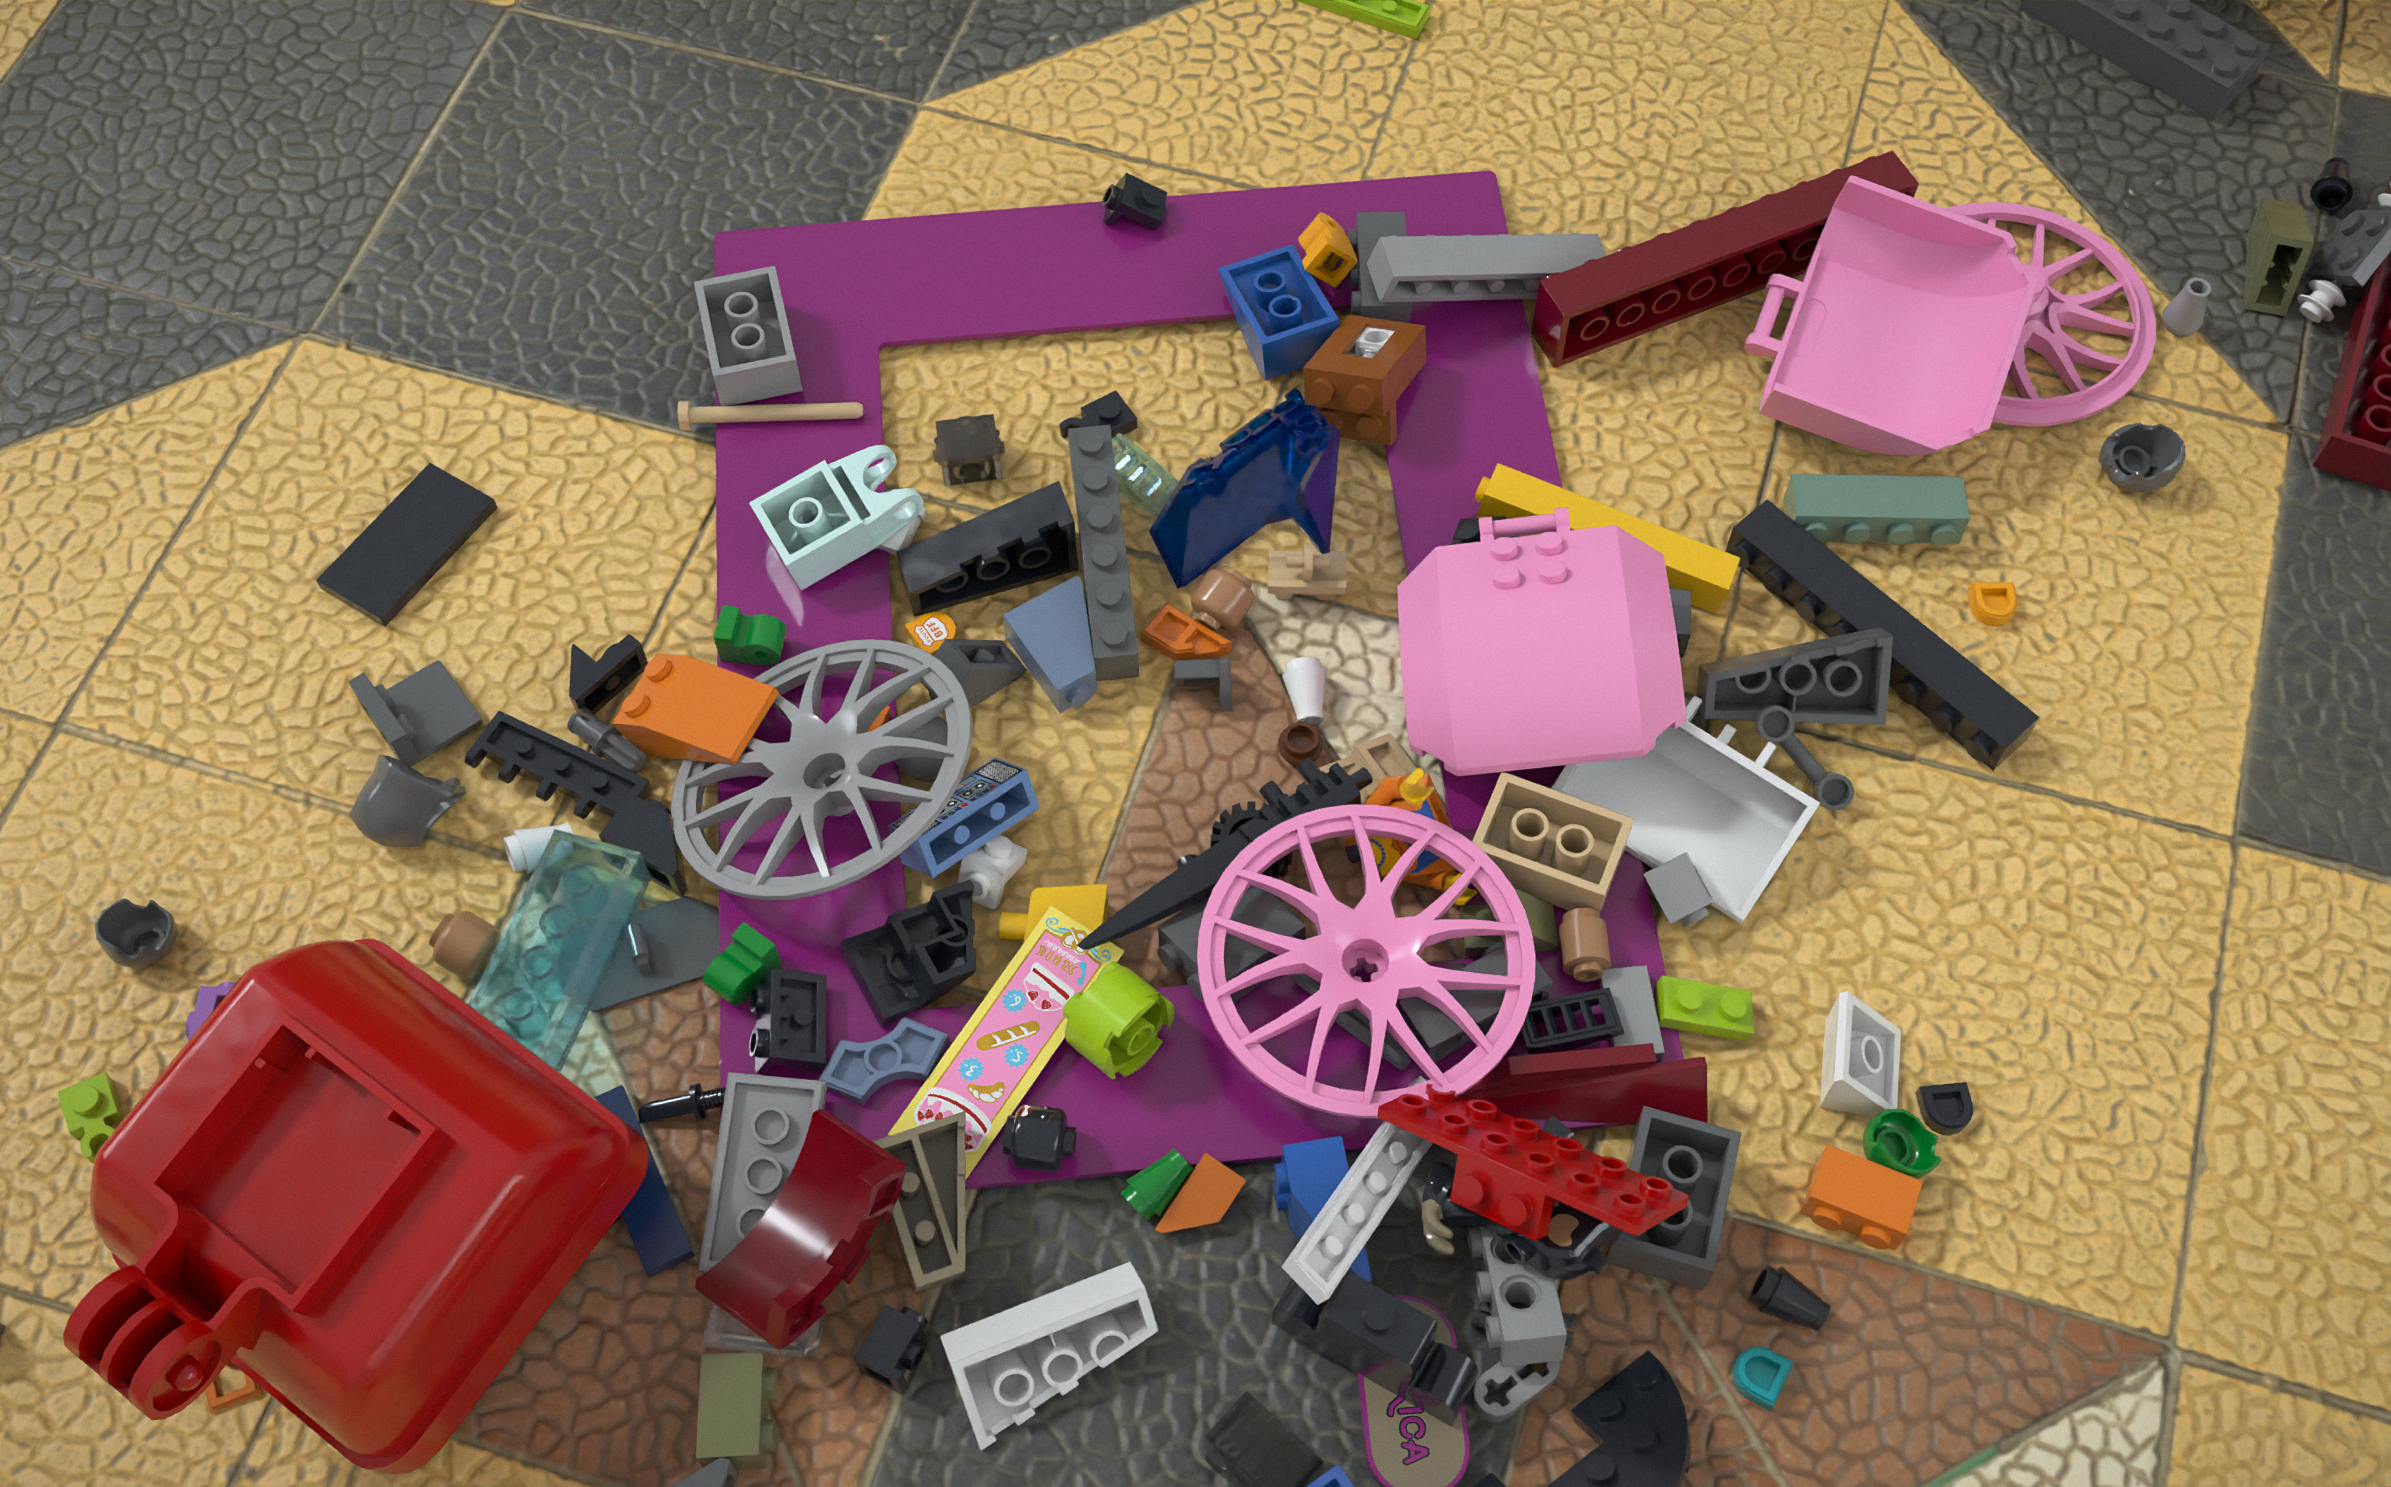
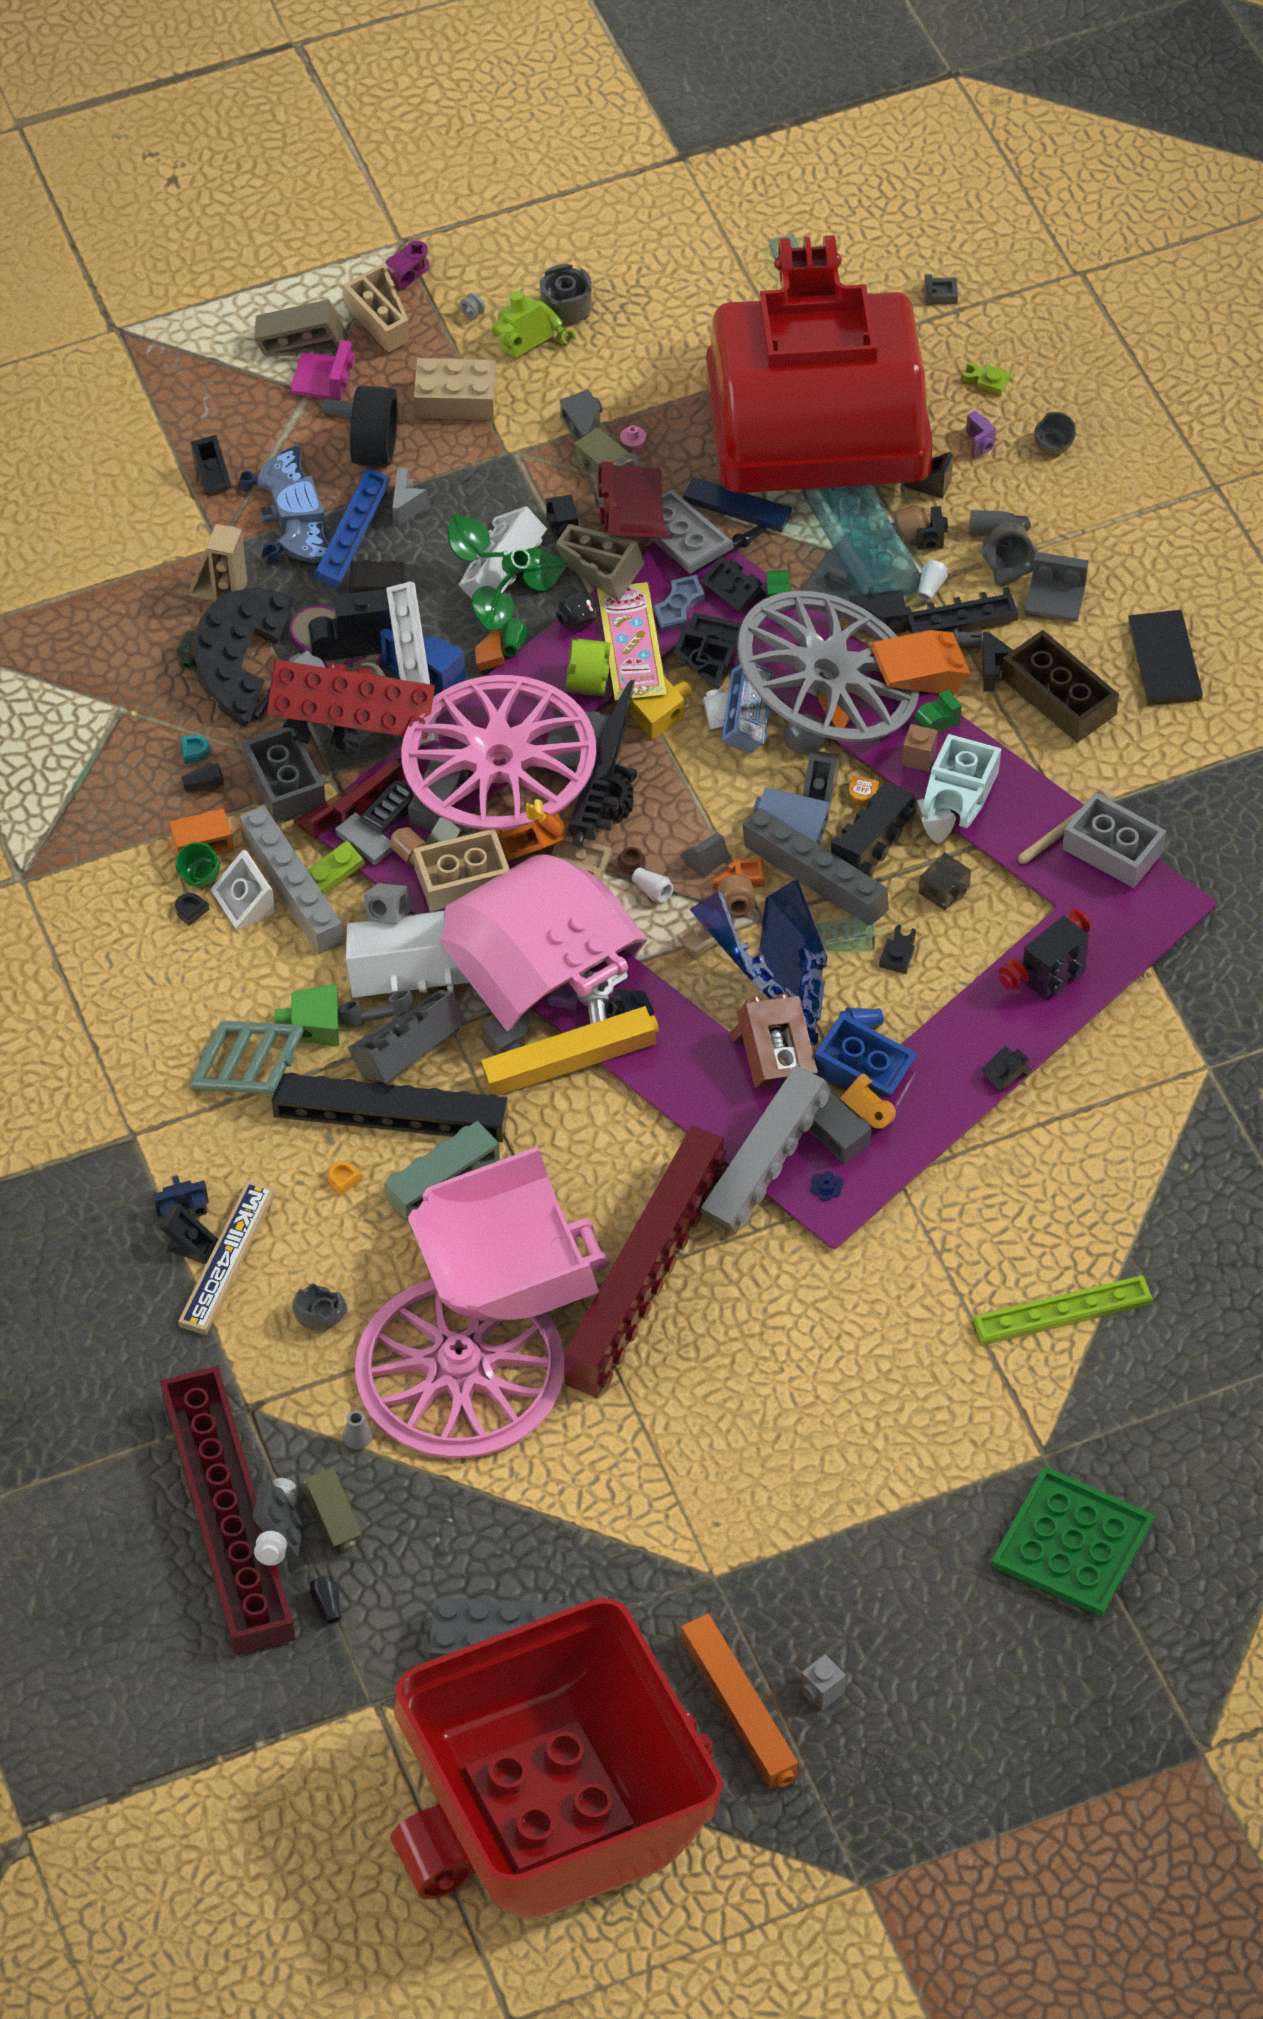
camera: 140 degrees right, 5 degrees down
(366, 867) = (985, 521): none -> dark grey piece
(447, 900) = (933, 537): none -> black bracket
(572, 571) = (1060, 686): none -> dark brown brick
(652, 1426) = (633, 439): none -> bright pink tile
(823, 605) = (919, 747): none -> medium nougat brick
(966, 253) = (1051, 957): none -> black brick
(1014, 1283) = (539, 568): none -> green plant
(1230, 369) = (868, 1017): none -> blue cone
(1443, 224) = (826, 1185): none -> clear blue plant
(1571, 1380) = (260, 710): none -> black piece
(1780, 1032) = (291, 879): none -> light grey brick
(1890, 815) = (316, 1012): none -> bright green torso
(1994, 854) = (248, 1082): none -> sand green bar
(2209, 600) = (226, 1258): none -> tile
(2232, 696) = (186, 1193): none -> dark blue hips
(2254, 643) = (188, 1235): none -> black slope

